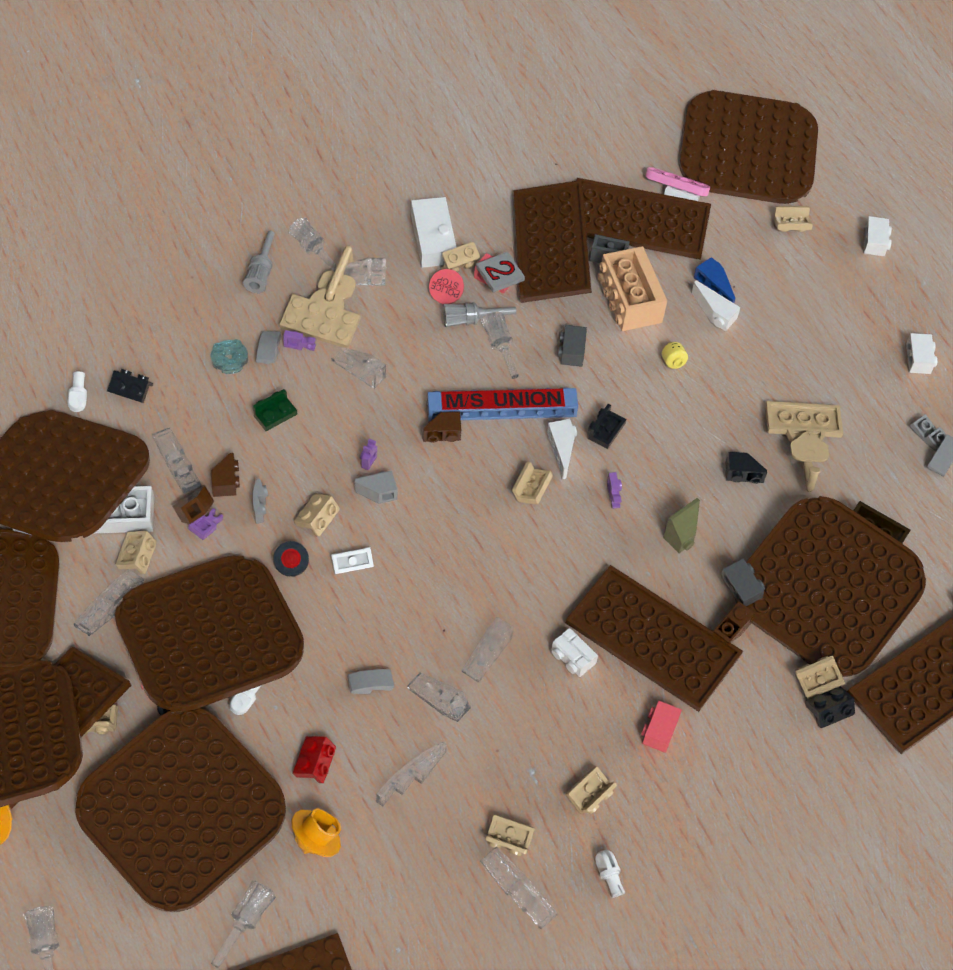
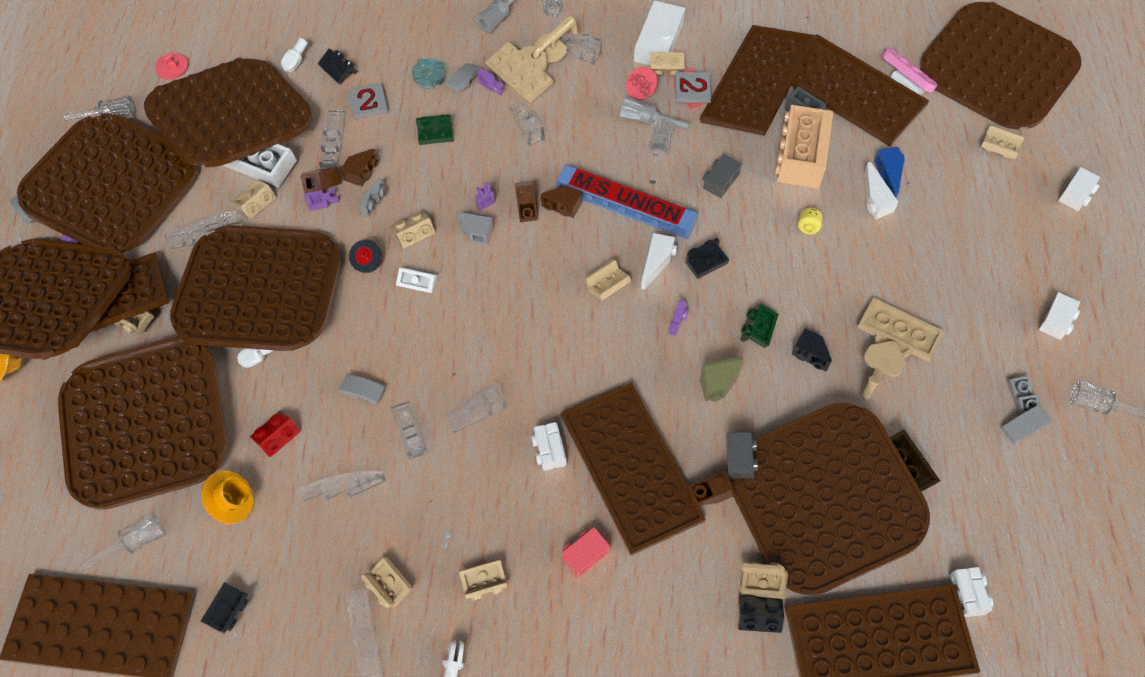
camera: 35 degrees right, 5 degrees up
(185, 408) = (367, 101): none -> light grey tile
(379, 929) = (224, 608): none -> black bracket
(409, 442) = (526, 201): none -> reddish brown slope
(686, 467) = (759, 325): none -> dark green bracket

